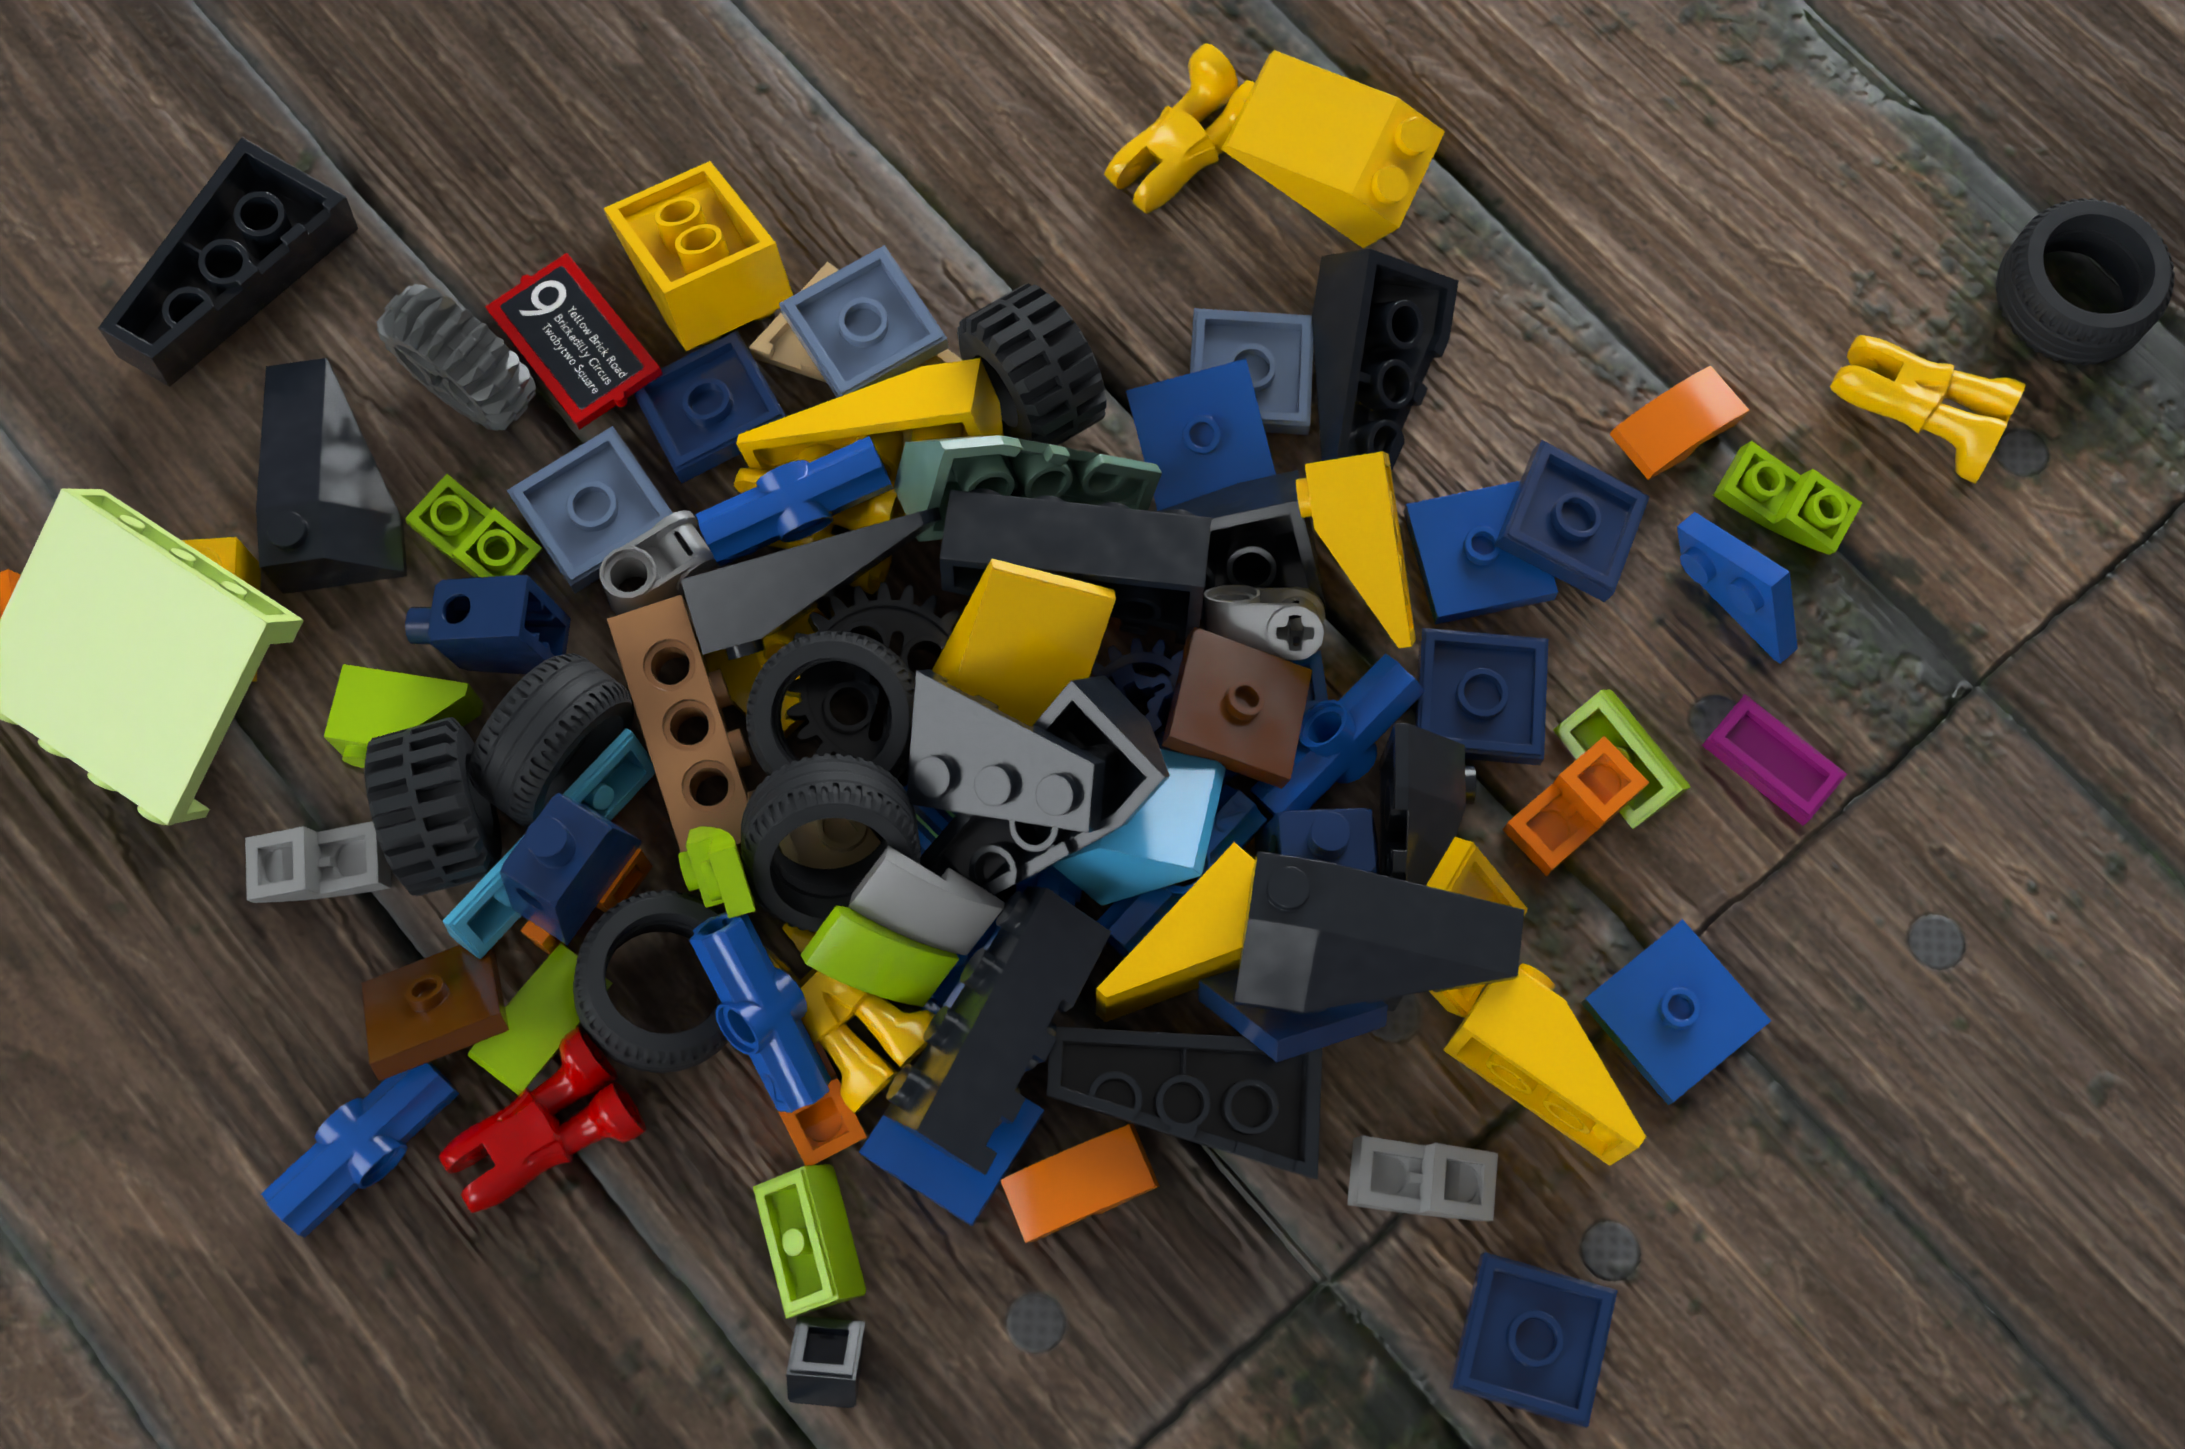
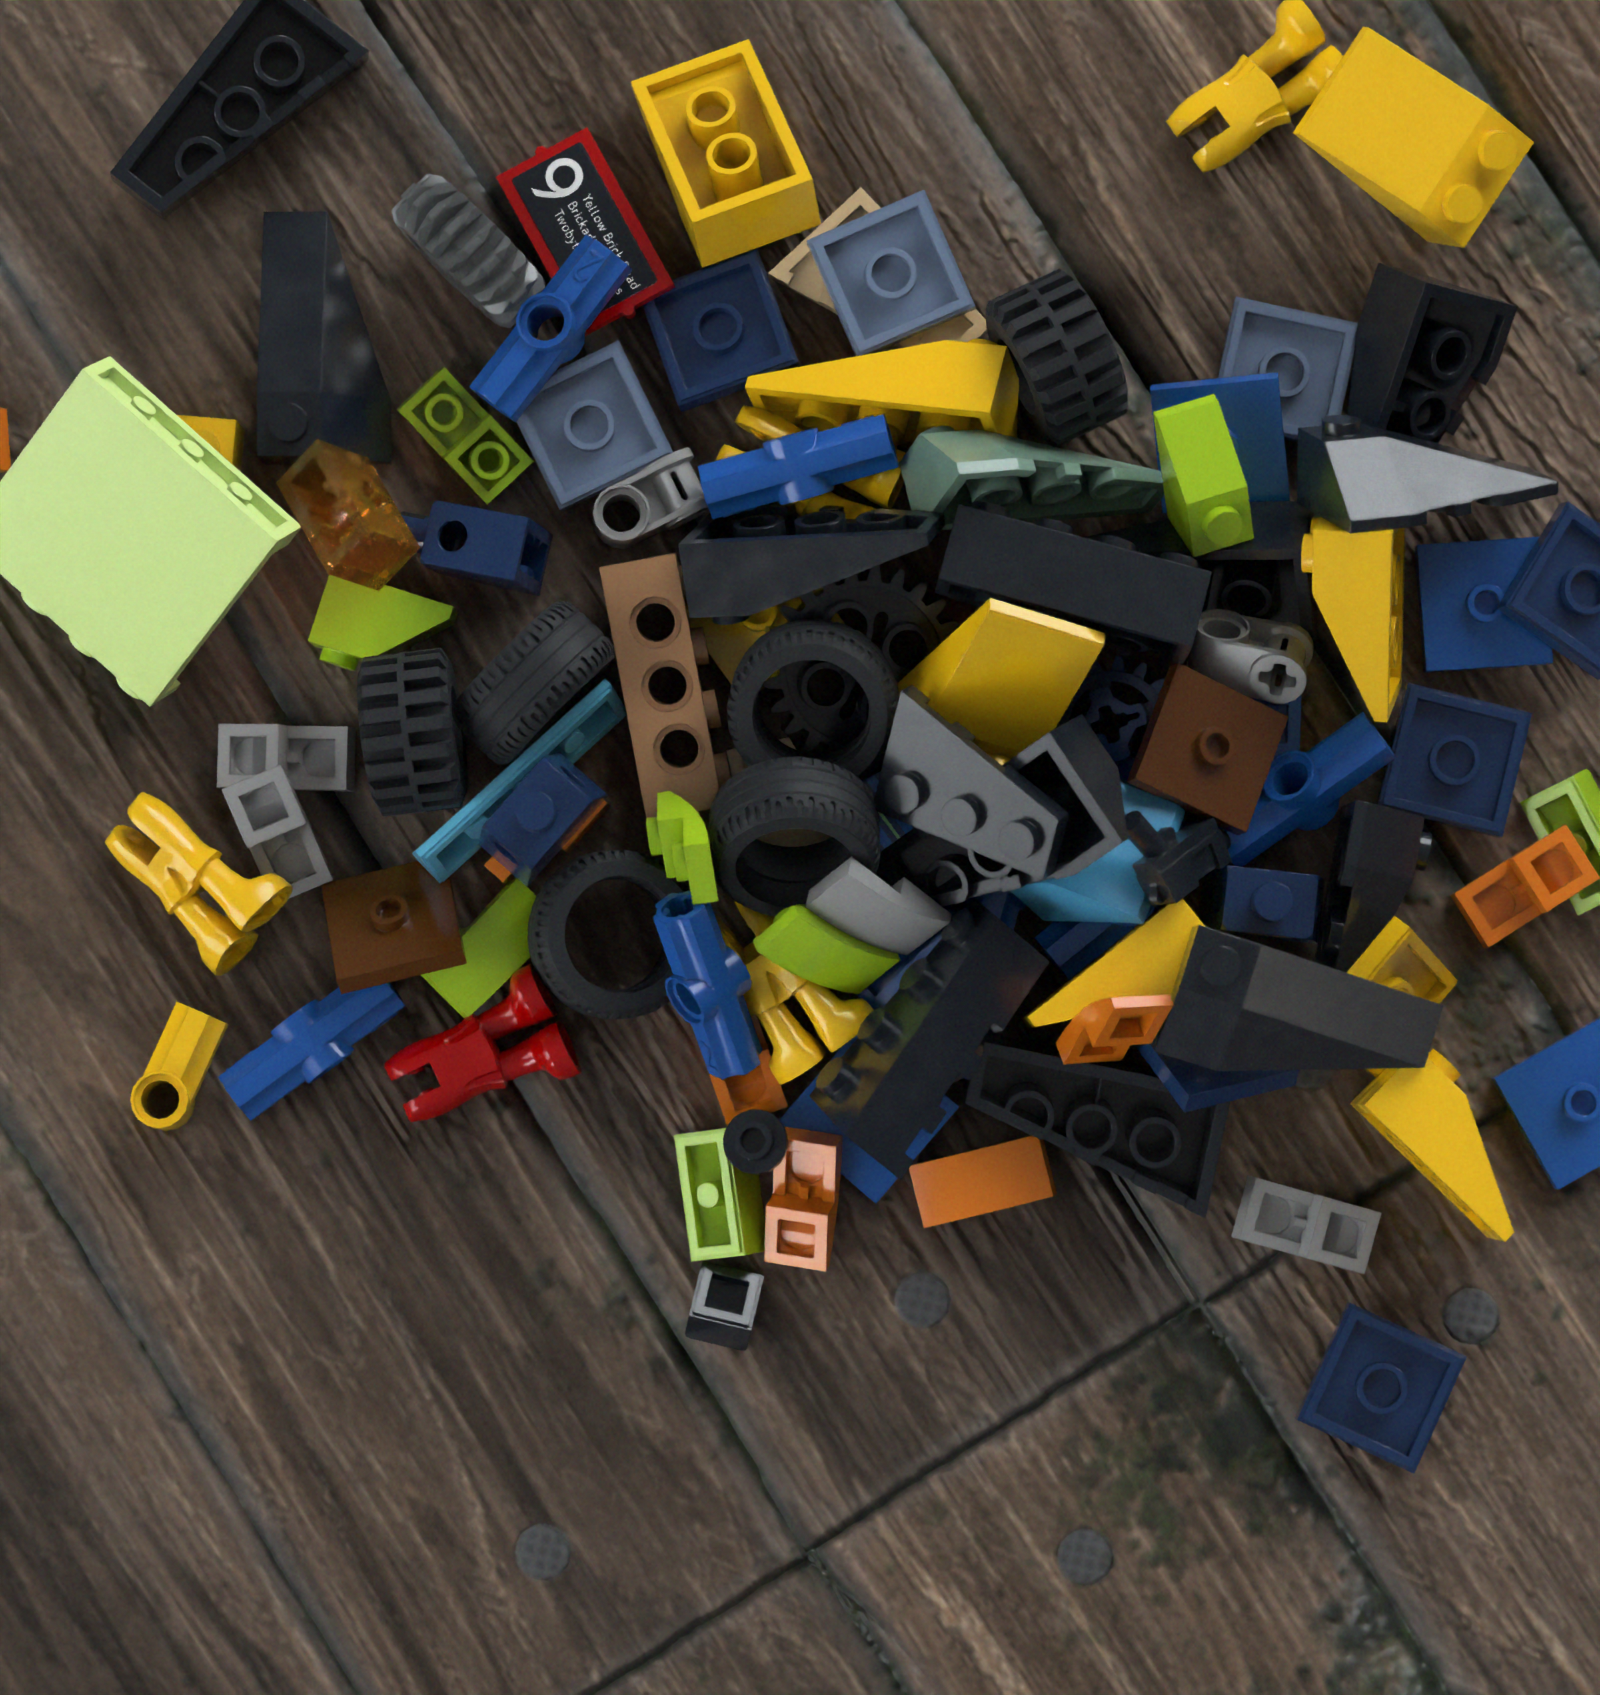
camera: 10 degrees right, 15 degrees up
(215, 986) = (184, 870): none -> yellow piece
(219, 1185) = (180, 1060): none -> yellow piece
(310, 935) = (278, 829): none -> light grey slope
(352, 607) = (348, 515): none -> clear orange brick
(541, 415) = (574, 293): none -> blue piece
(834, 1174) = (755, 1141): none -> black plate
(896, 1233) = (804, 1201): none -> orange slope
(1185, 980) = (1110, 1026): none -> orange slope
(1188, 448) = (1202, 476): none -> lime slope
(1219, 813) = (1177, 860): none -> black piece
(1360, 417) = (1390, 480): none -> wedge

